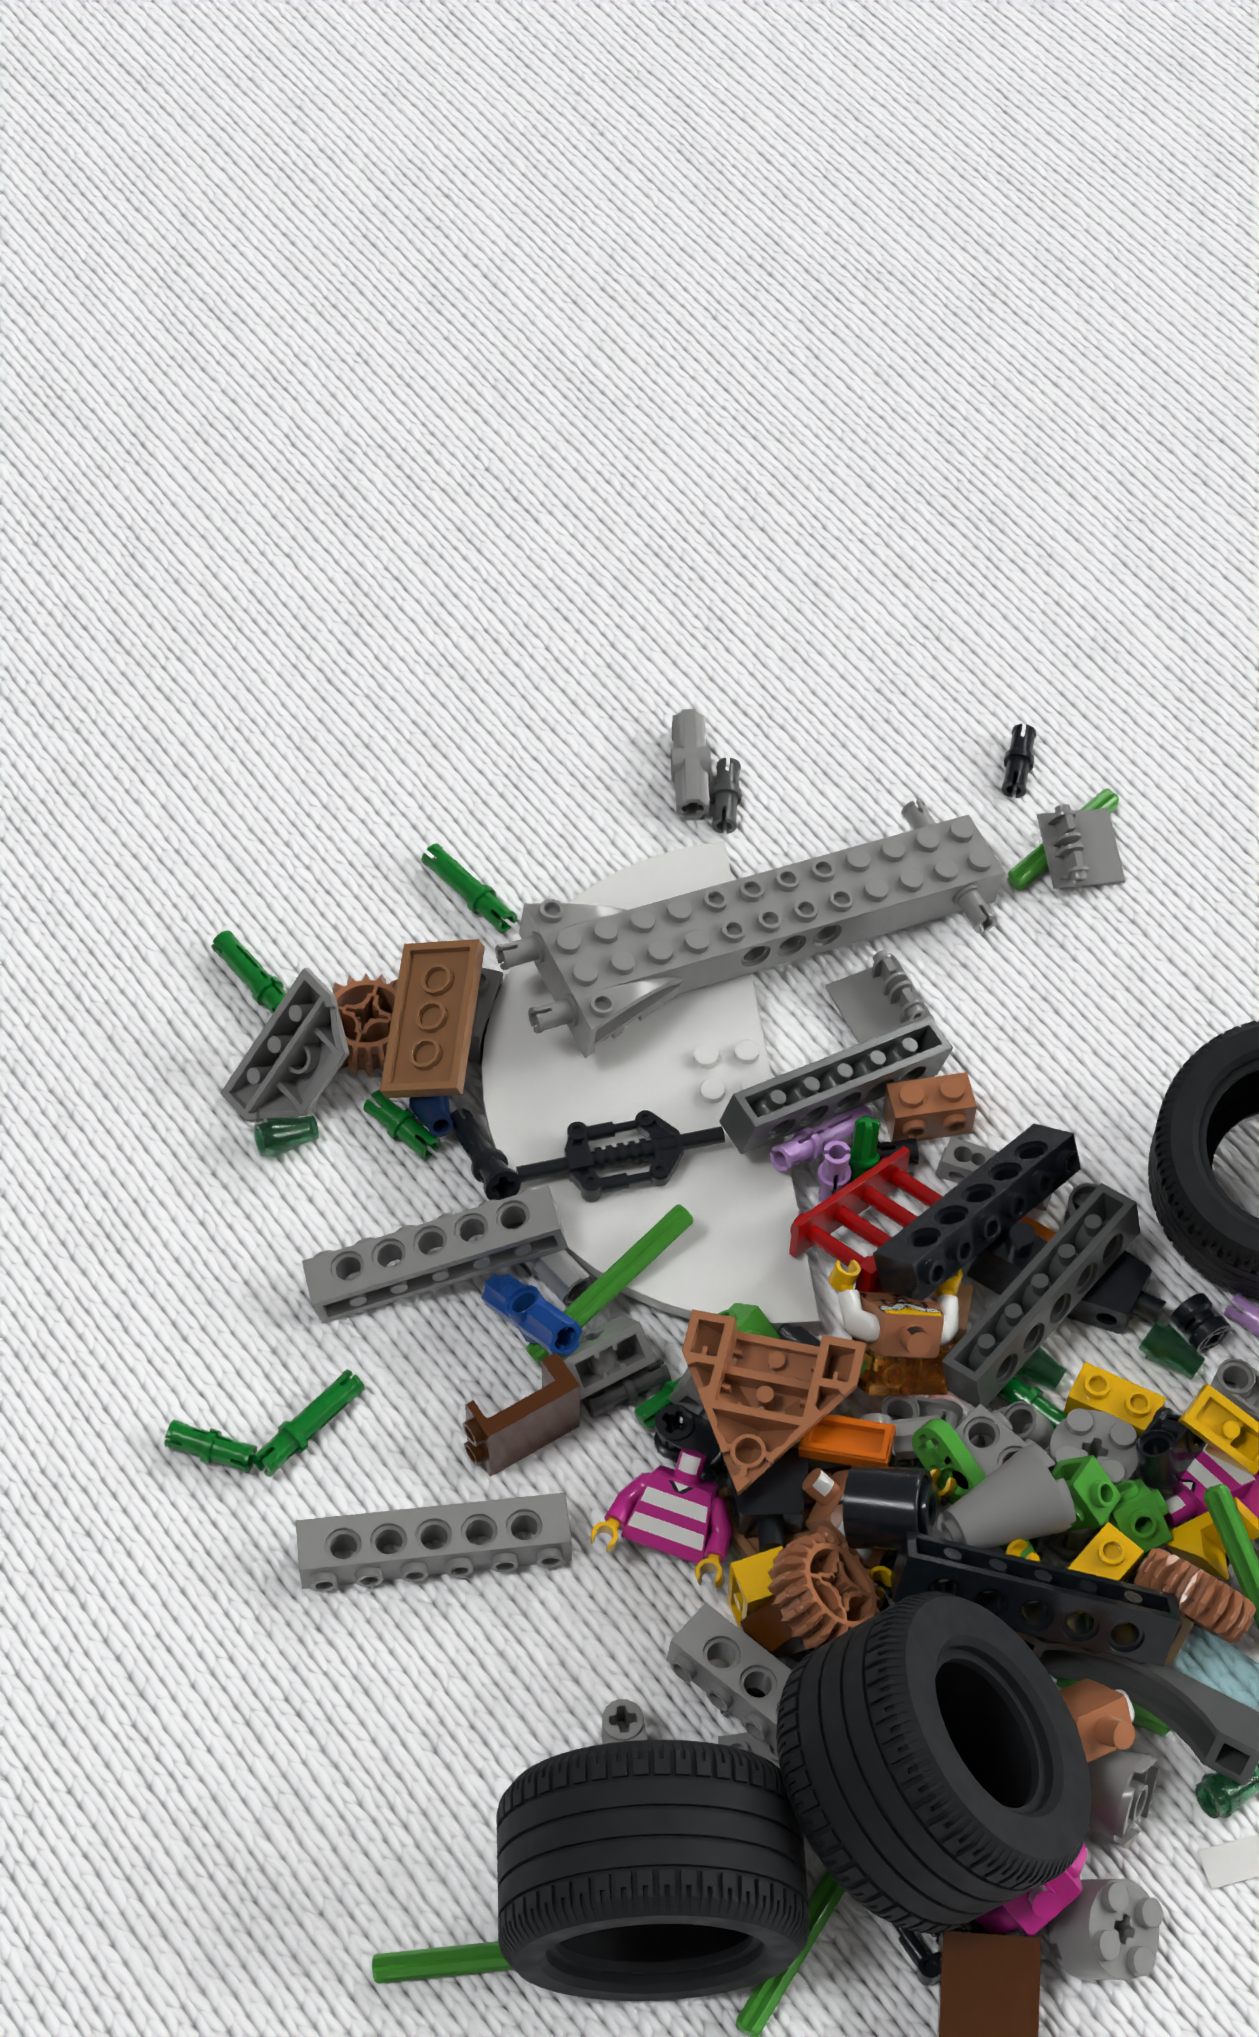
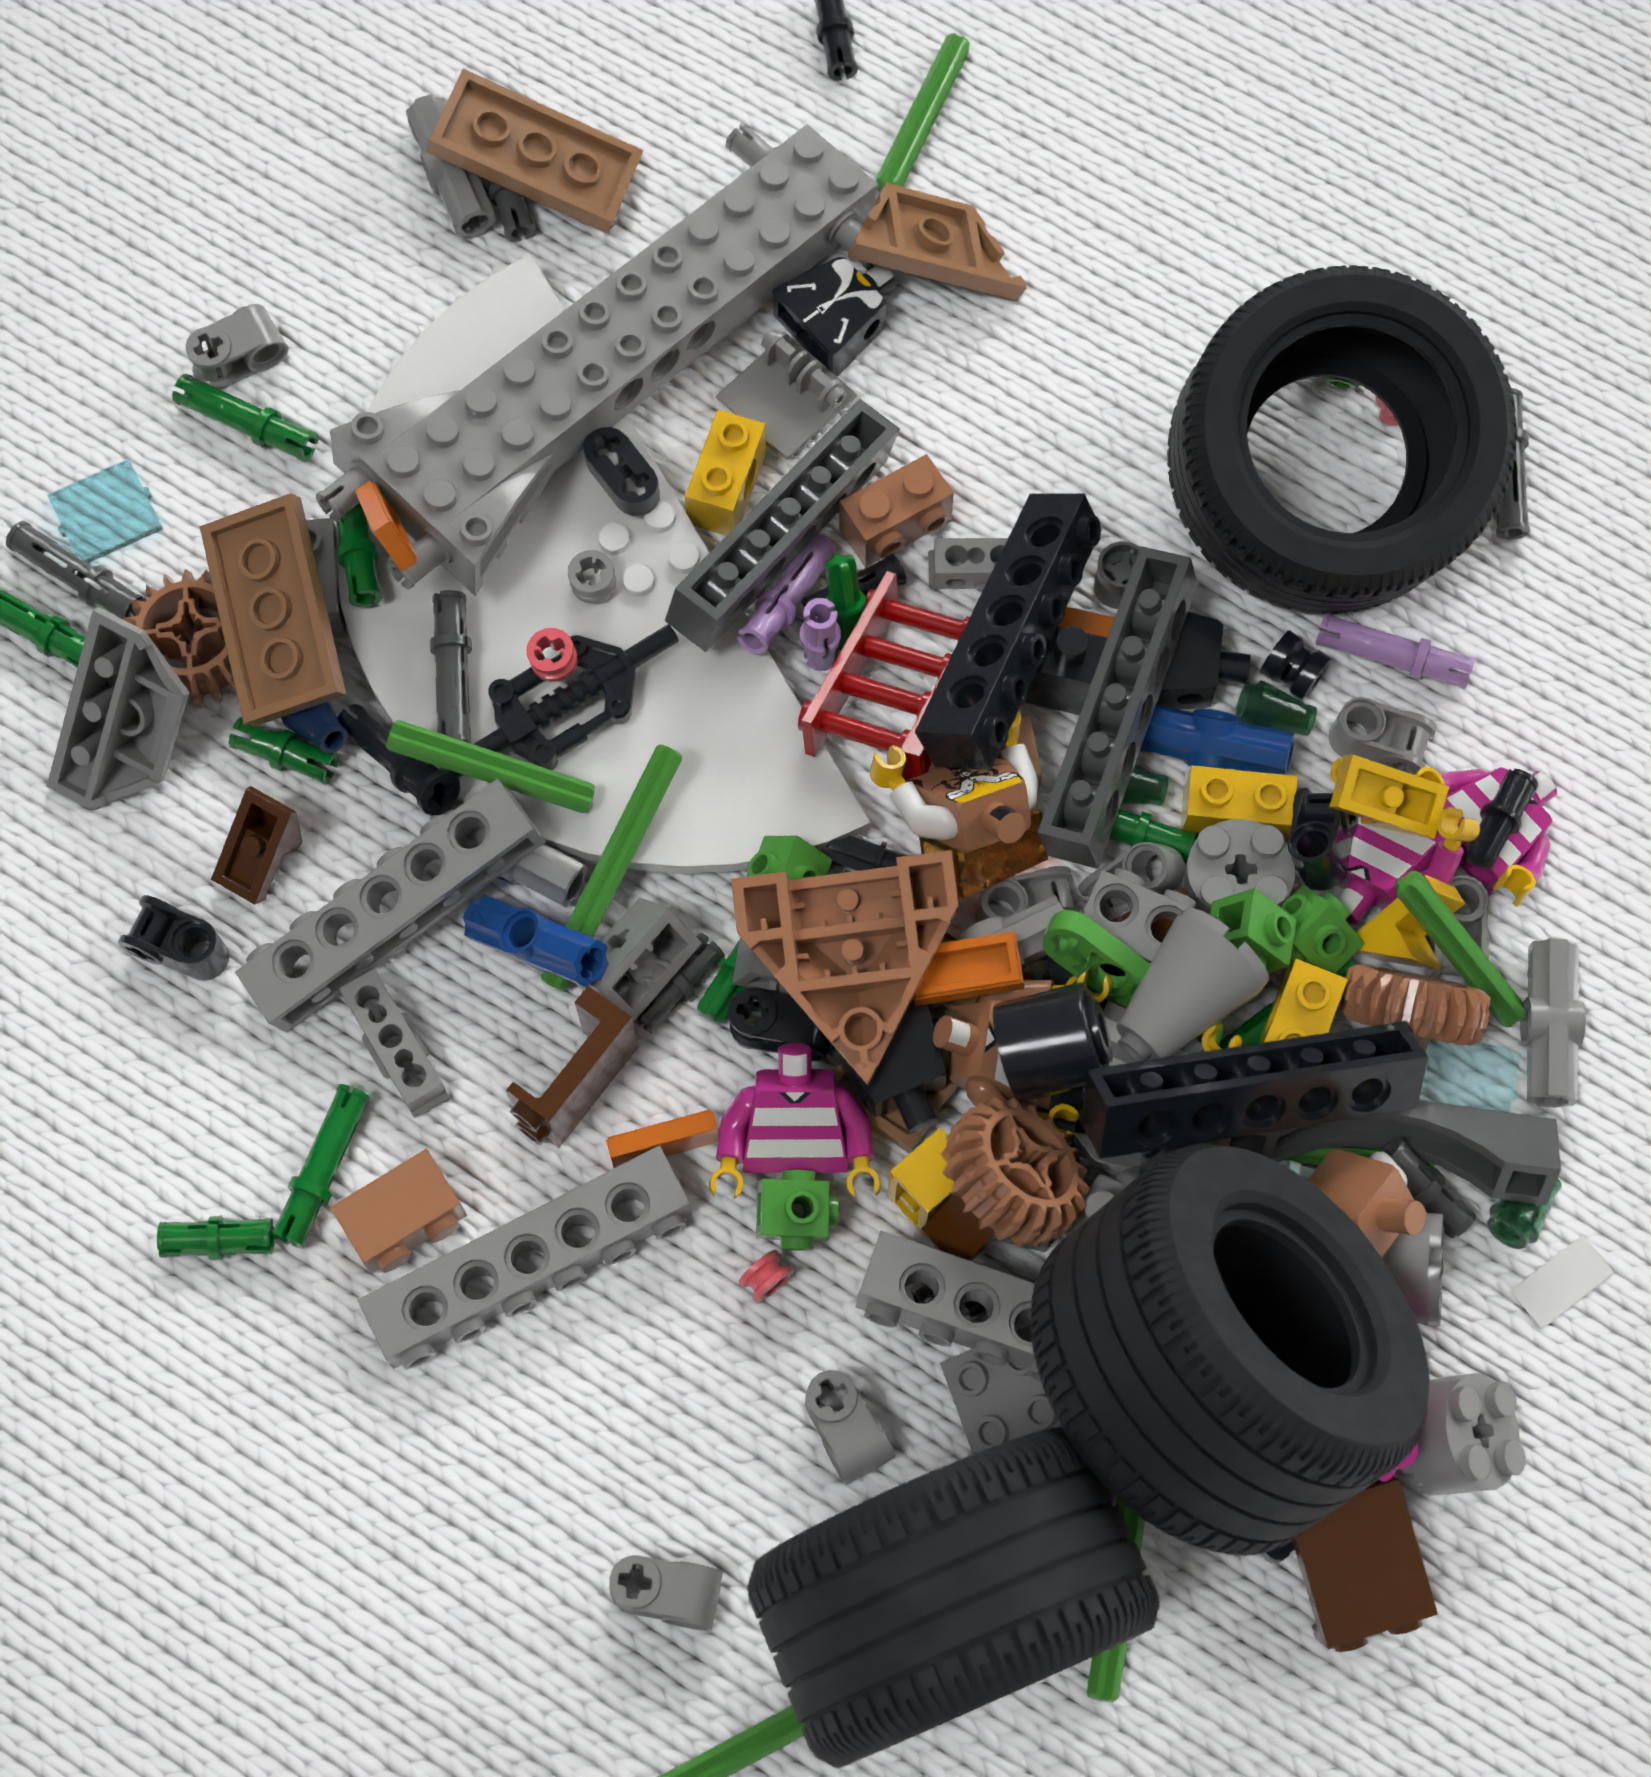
camera: 20 degrees left, 15 degrees up
(265, 1222) = (166, 937): none -> black piece
(279, 925) = (32, 544): none -> dark grey pin
(282, 1135) = (145, 815): clear green cone -> none
(340, 920) = (105, 511): none -> clear light blue piece
(352, 1473) = (399, 1213): none -> nougat brick
(357, 1176) = (255, 845): none -> reddish brown slope
(391, 1365) = (411, 1047): none -> light grey piece
(445, 1823) = (679, 1592): none -> light grey piece
(484, 836) = (236, 344): none -> light grey piece
(511, 1004) = (358, 558): none -> green pin
(538, 981) = (386, 525): none -> orange tile
(543, 1174) = (489, 766): none -> bright green axle
(552, 1090) = (451, 658): none -> dark grey pin
(582, 1494) = (672, 1136): none -> orange tile
(609, 1620) = (766, 1276): none -> coral bush
(634, 1109) = (557, 640): none -> coral bush
(635, 1582) = (775, 1213): none -> bright green brick
(682, 1063) = (587, 592): none -> light grey bush
(722, 1010) = (630, 465): none -> black beam
(756, 771) = (534, 150): none -> medium nougat plate
(811, 1035) = (726, 472): none -> yellow brick
(940, 953) = (834, 310): none -> black torso
(1034, 927) = (935, 241): none -> medium nougat wing
(1080, 847) = (948, 119): light grey hinge -> none
(1113, 1353) = (1218, 741): none -> blue piece
(1156, 1742) = (1429, 1188): none -> dark grey pin

